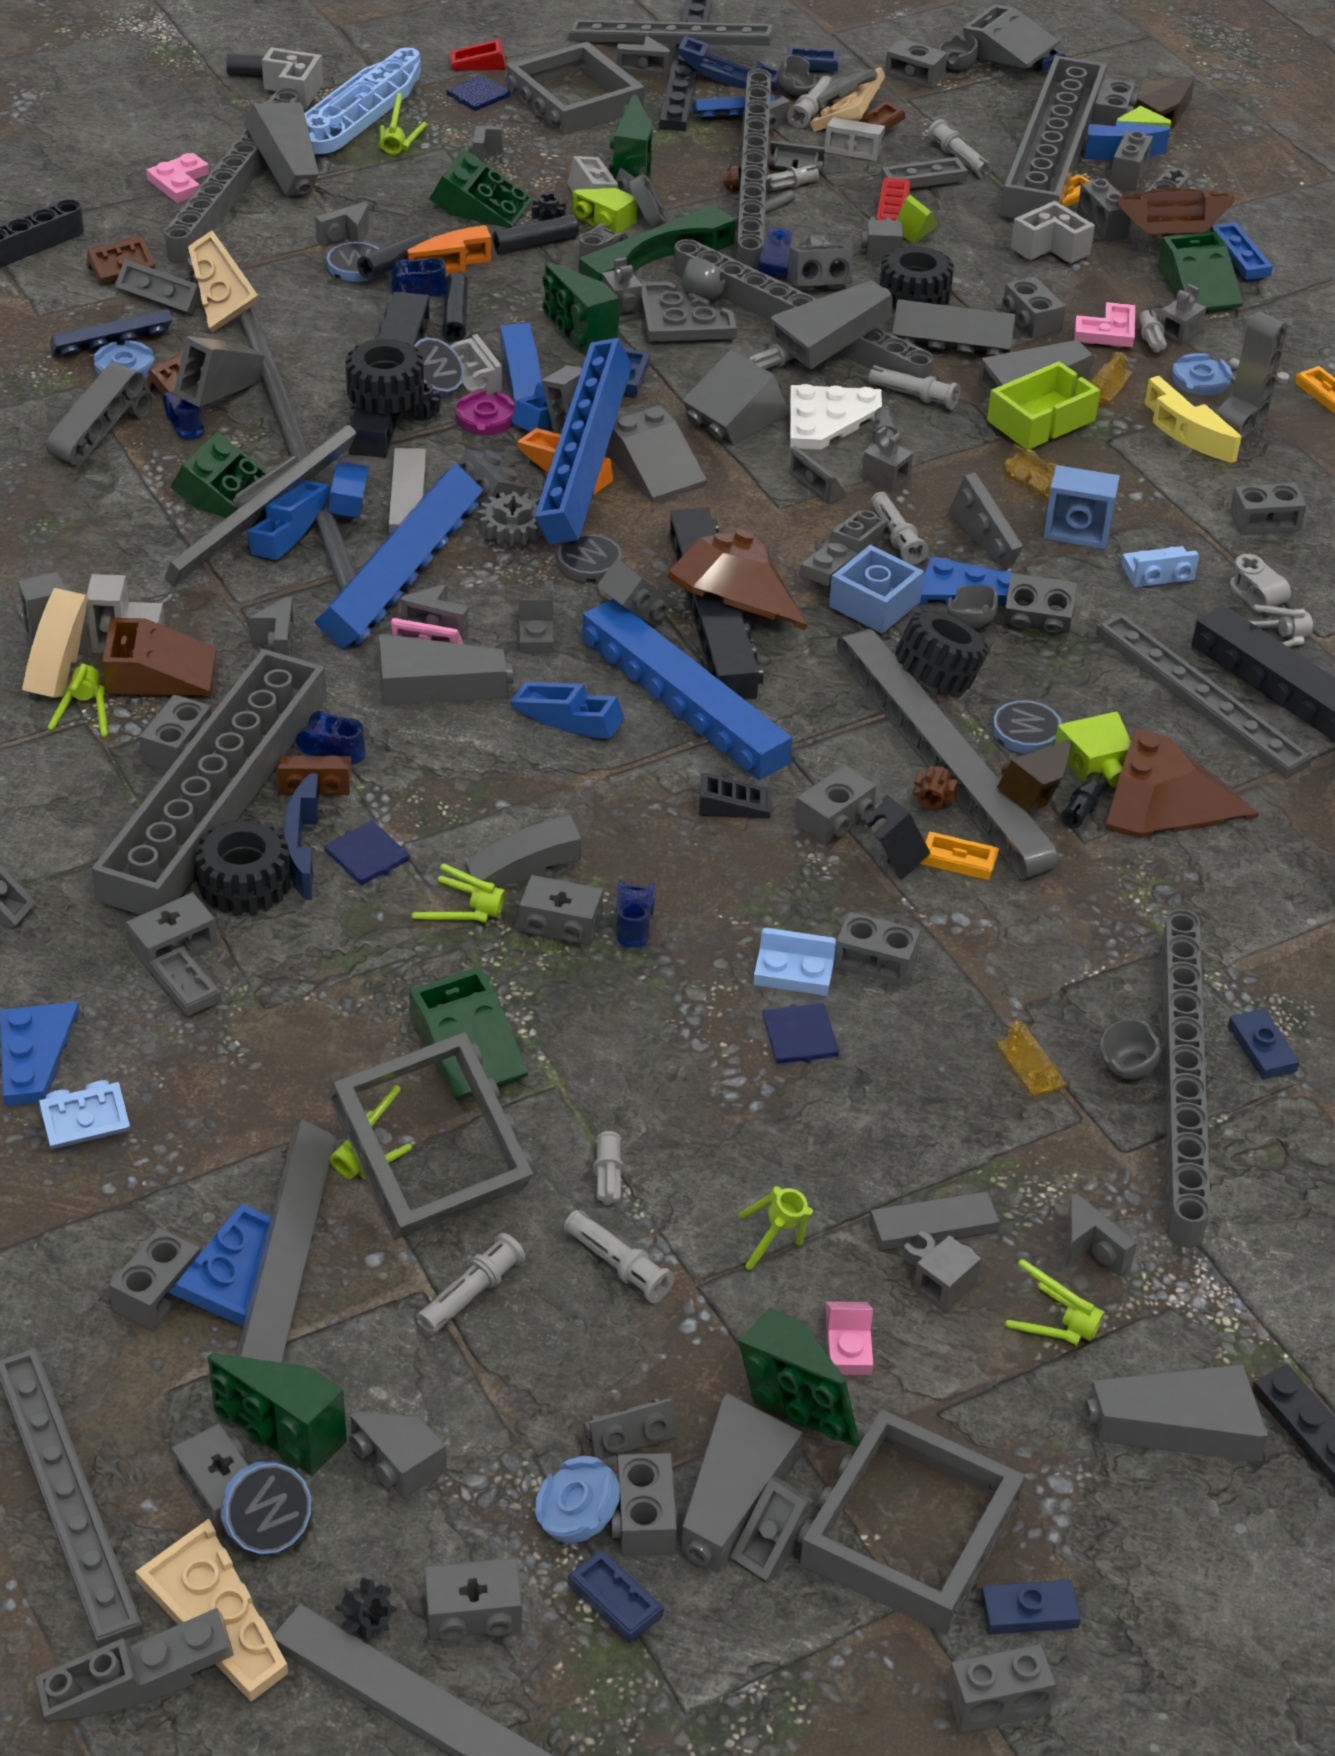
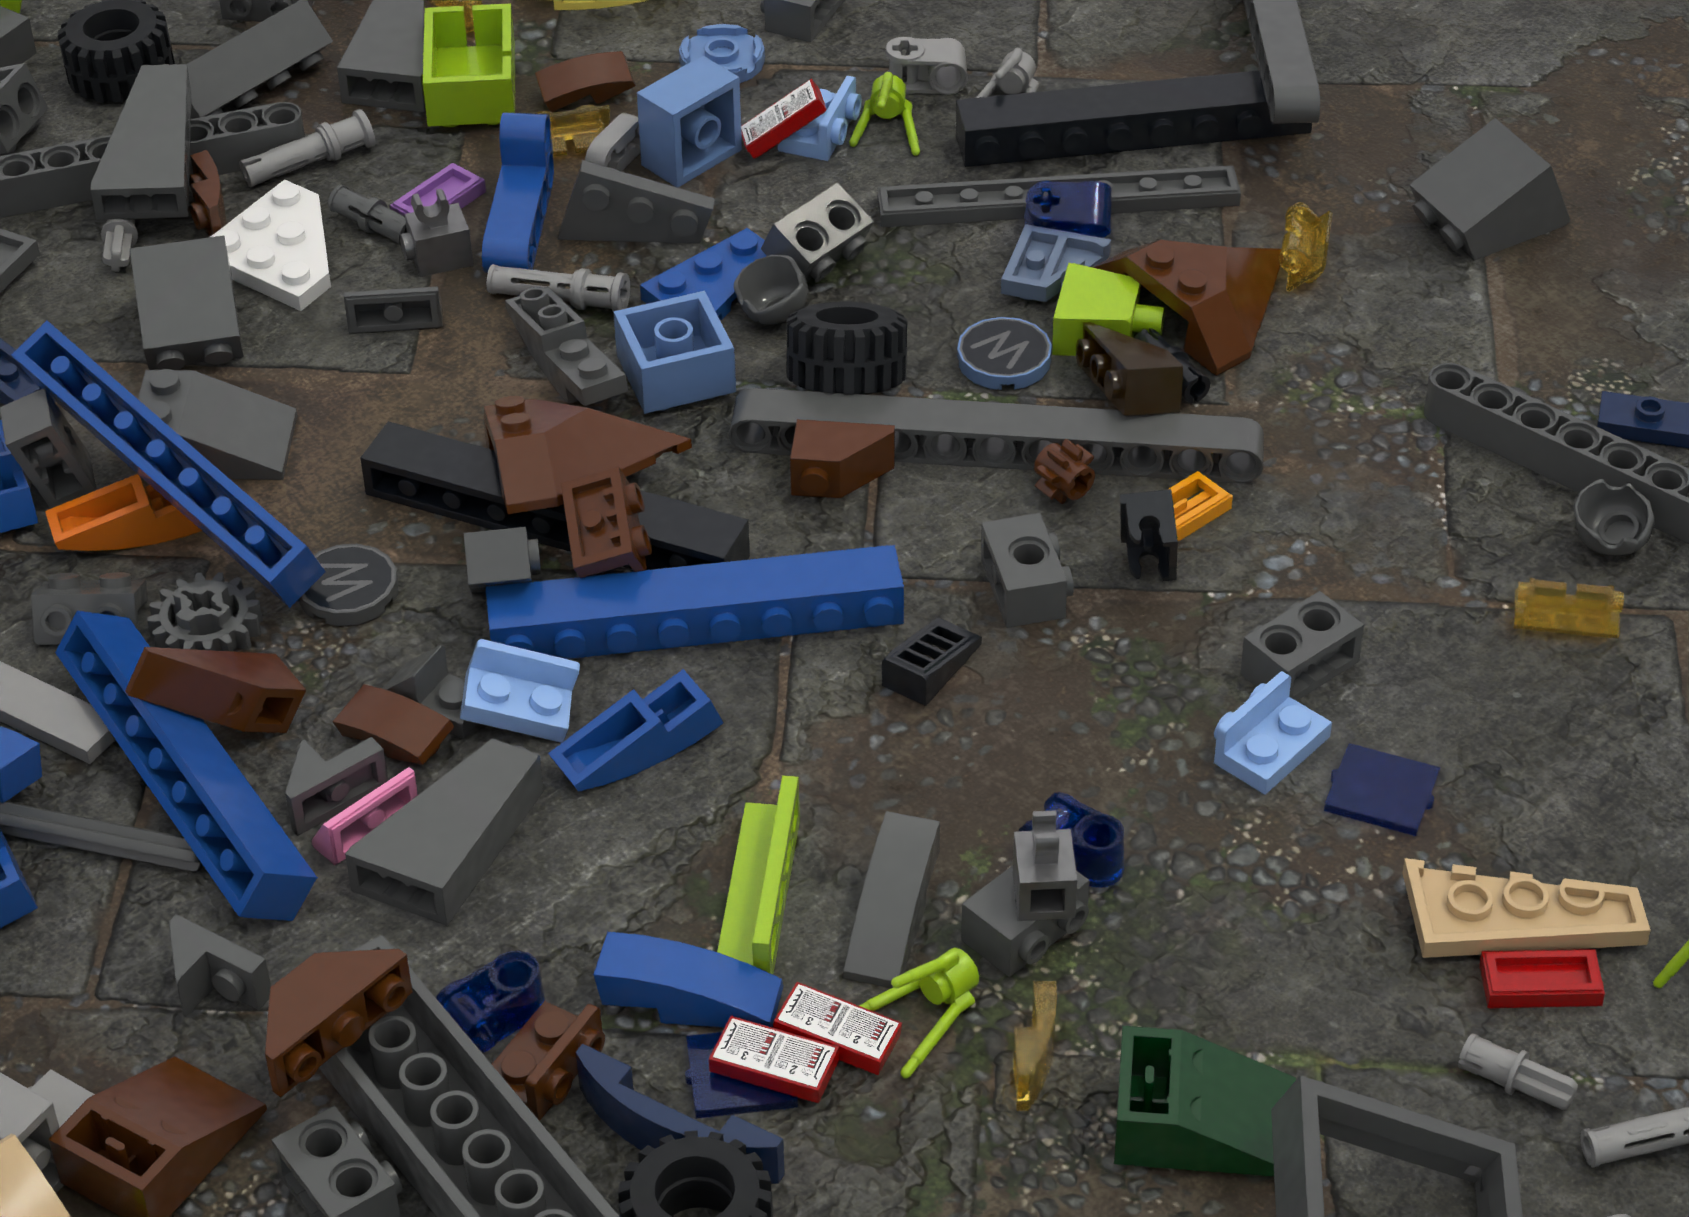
camera: 55 degrees left, 0 degrees up
(244, 662) = (328, 1008): none -> reddish brown slope
(376, 856) = (774, 1059): none -> tile
(399, 799) = (684, 982): none -> blue slope
(419, 873) = (861, 1034): none -> tile
(454, 539) = (220, 686): none -> reddish brown slope
(455, 955) = (1035, 1045): none -> clear yellow slope
(496, 618) = (398, 724): none -> reddish brown slope
(497, 803) = (761, 879): none -> lime fence
(555, 648) = (519, 690): none -> light blue bracket
(566, 888) = (1044, 870): none -> flat silver brick
(691, 615) = (605, 523): none -> reddish brown bracket
(699, 1158) = (1541, 978): none -> red tile
(731, 1116) = (1478, 913): none -> tan wing
(838, 369) = (208, 204): none -> reddish brown slope
(857, 692) = (839, 456): none -> reddish brown slope
(933, 451) = (456, 182): none -> medium lavender tile
(939, 483) = (521, 191): none -> blue beam
(1038, 497) = (616, 143): none -> light grey beam
(1089, 455) = (594, 74): none -> reddish brown slope
(1132, 545) = (783, 118): none -> tile
(1134, 705) = (1042, 260): none -> sand blue wing
(1178, 695) = (1072, 206): none -> clear blue piece
(1181, 502) = (728, 47): none -> medium blue tile
(1209, 582) = (888, 101): none -> lime plant
(1246, 816) = (1304, 244): none -> clear yellow hinge

